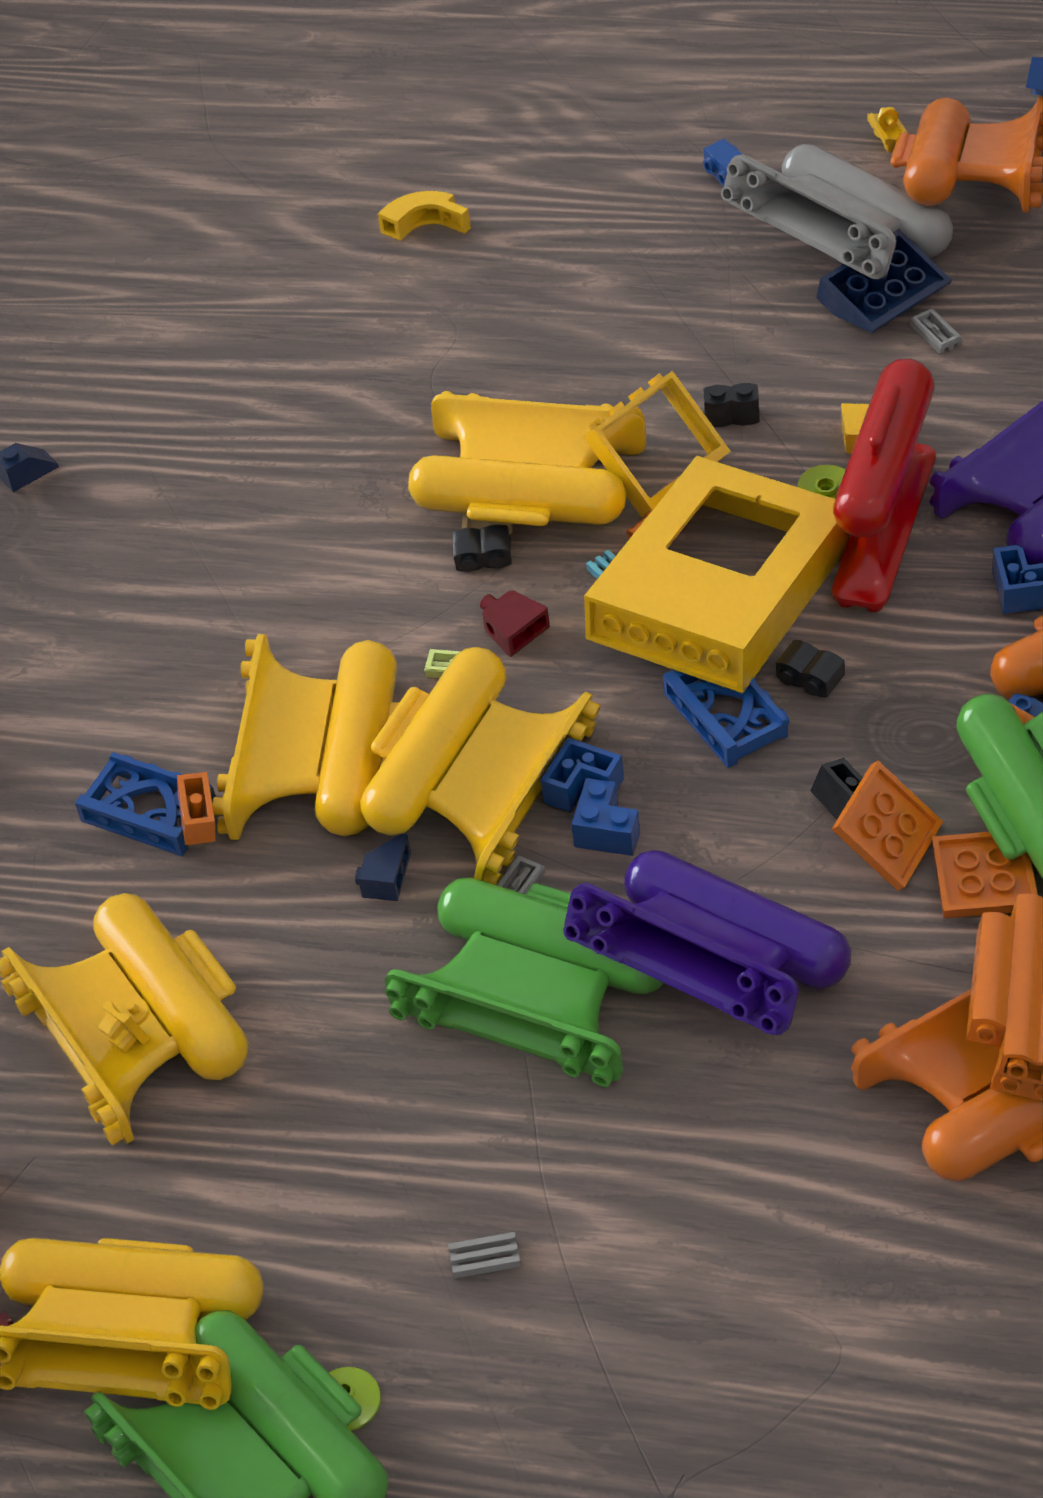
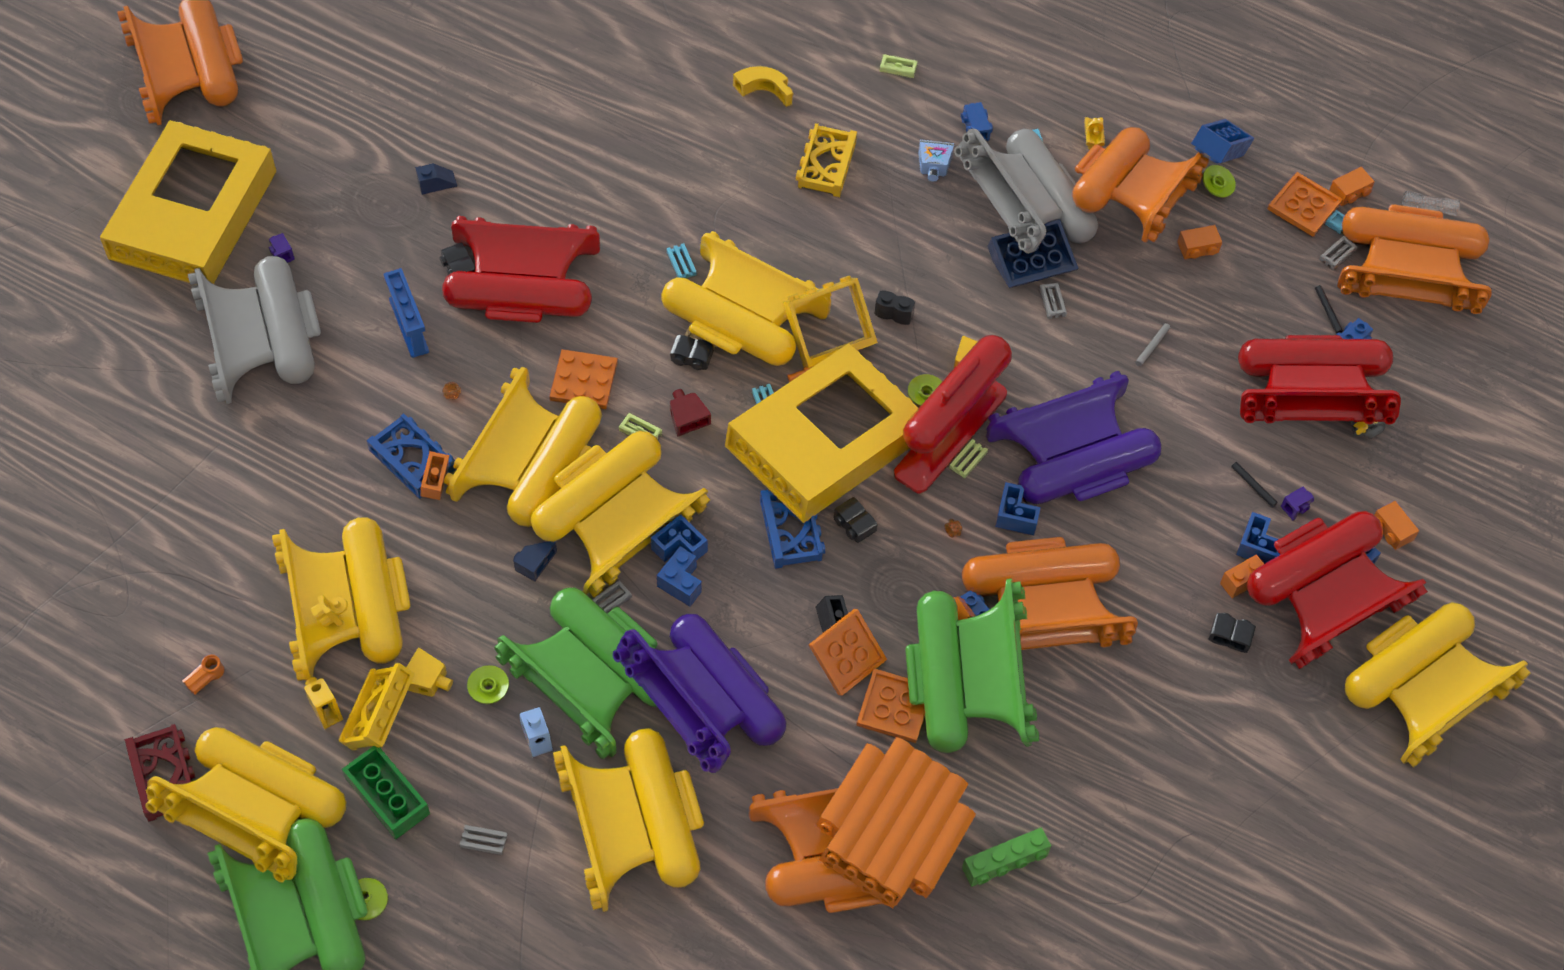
camera: 10 degrees right, 10 degrees up
(61, 627) = (406, 313): none -> blue fence
(104, 552) = (456, 259): none -> black brick
(154, 1147) = (320, 695): none -> yellow torso
(166, 706) = (451, 386): none -> clear orange plate
(196, 526) = (520, 270): none -> red piece
(232, 1170) = (376, 707): none -> yellow fence
(297, 1070) = (428, 674): none -> yellow torso
(312, 1239) = (386, 791): none -> green brick
(339, 623) = (583, 376): none -> orange plate
(391, 1040) = (484, 677): none -> lime dish
(413, 443) = (677, 250): none -> medium azure tile
(486, 1076) = (534, 728): none -> light blue torso
(563, 295) = (835, 180): none -> yellow fence
(590, 141) = (898, 68): none -> yellowish green tile
(688, 1140) = (634, 815): none -> yellow piece
(693, 223) = (935, 158): none -> light blue torso
(928, 531) = (977, 447): none -> yellowish green tile
(948, 633) = (953, 528): none -> clear orange plate

